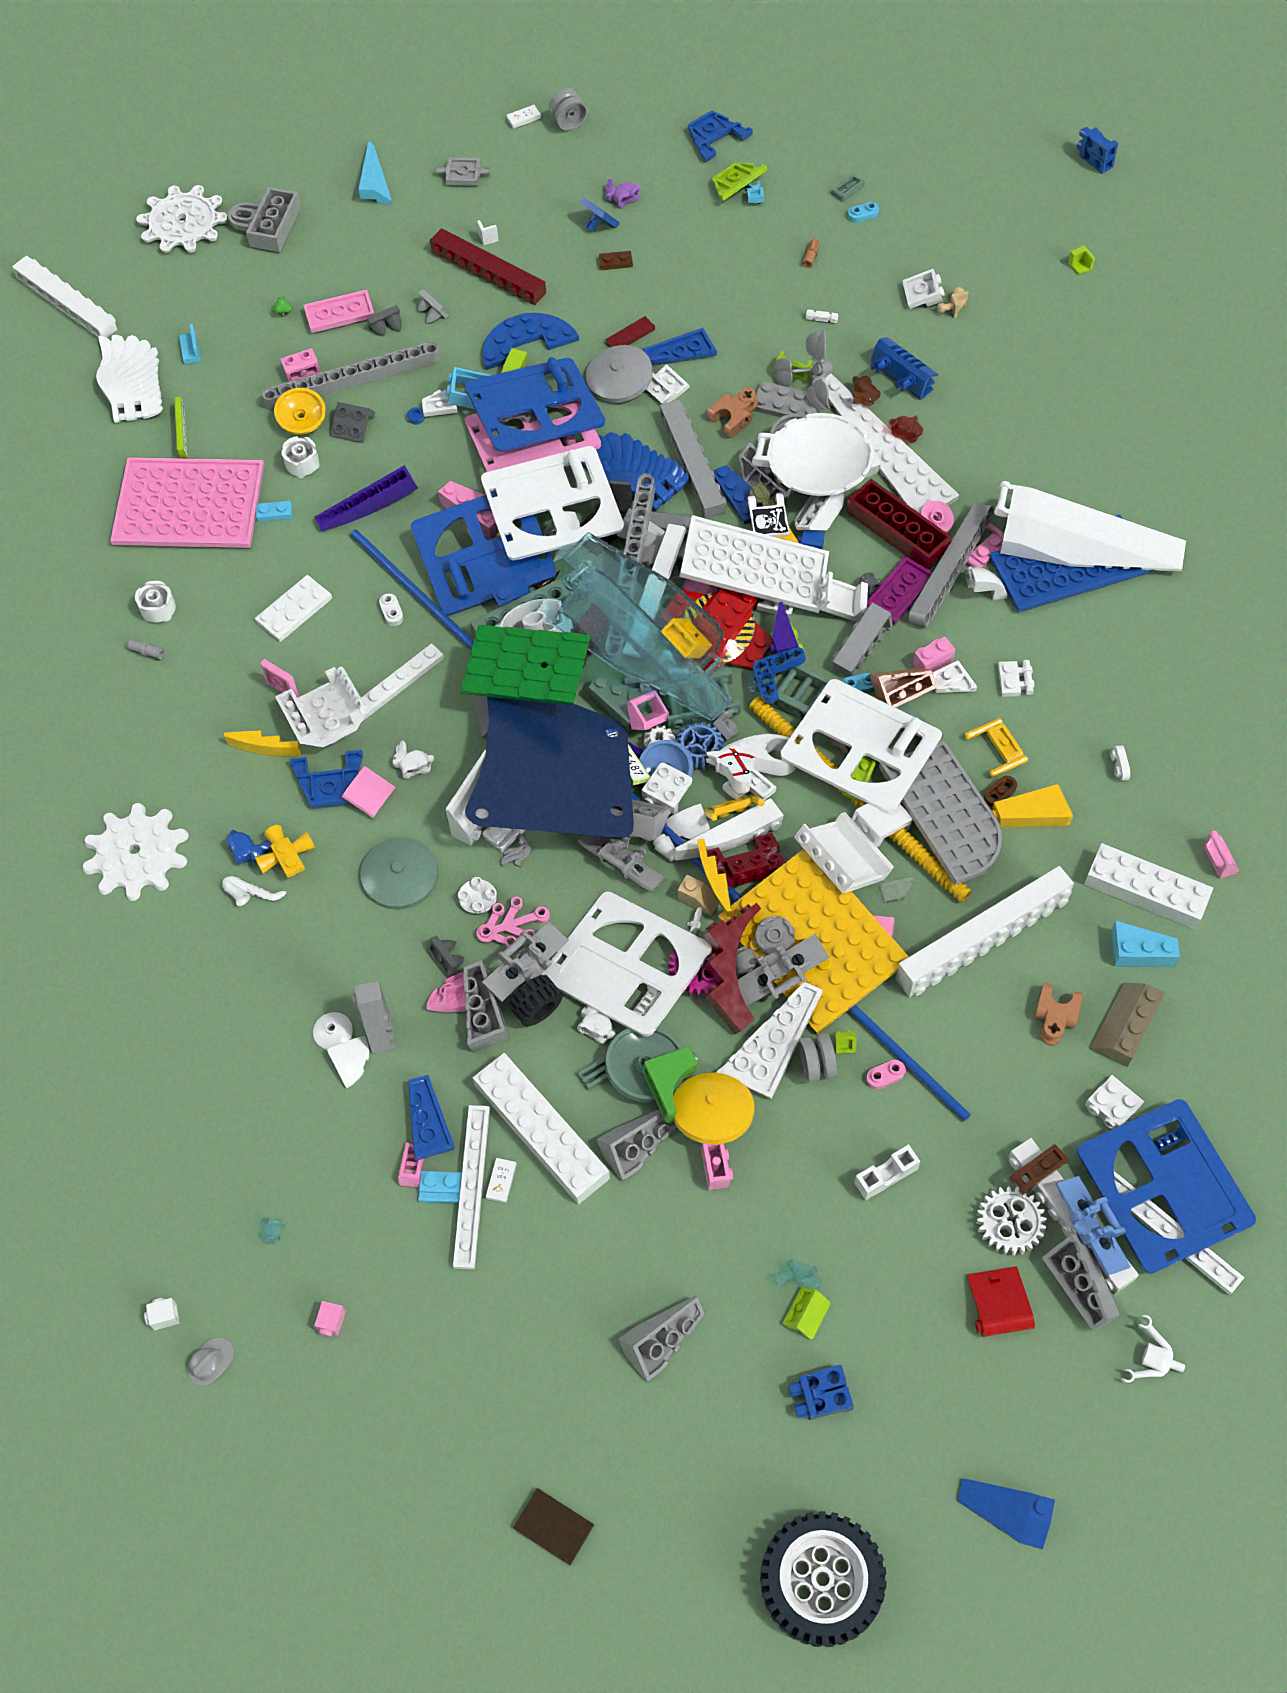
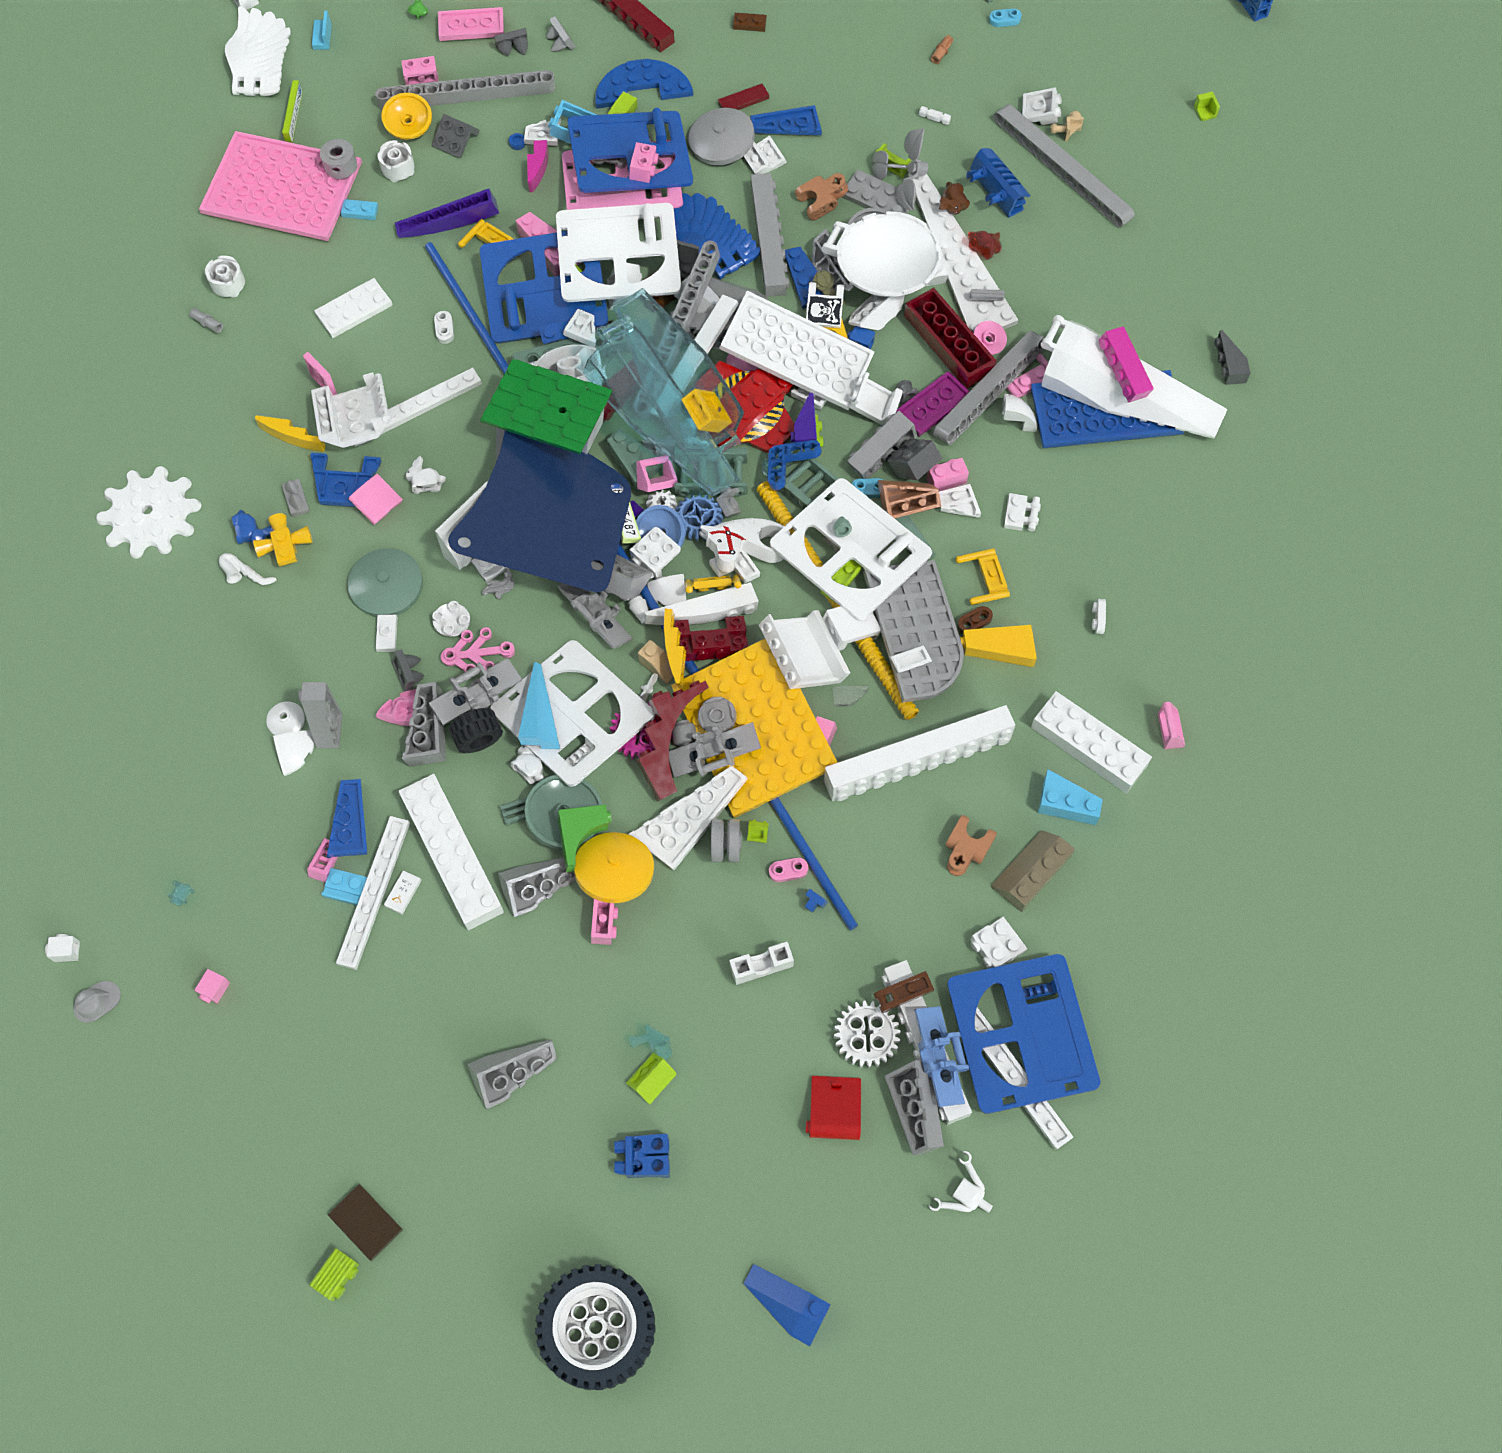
camera: 10 degrees right, 5 degrees up
(250, 466) = (345, 161): none -> light grey piece
(284, 807) = (295, 497): none -> light grey tile
(410, 510) = (484, 232): none -> yellow plate
(414, 923) = (386, 633): none -> white plate
(442, 433) = (537, 164): none -> dark pink slope
(534, 583) = (581, 328): none -> white wing
(537, 1588) = (335, 1275): none -> lime brick
(552, 412) = (643, 162): none -> bright pink brick
(595, 977) = (537, 719): none -> medium azure wedge
(848, 725) = (842, 527): none -> sand green tile
(898, 646) = (914, 459): none -> dark grey brick
(922, 1098) = (814, 901): none -> blue tile
(923, 476) = (984, 294): none -> light grey axle
(952, 840) = (911, 659): none -> white tile
(961, 340) = (1064, 166): none -> light grey beam
(1081, 515) = (1126, 364): none -> dark pink brick
(1177, 495) = (1233, 362): none -> dark grey slope

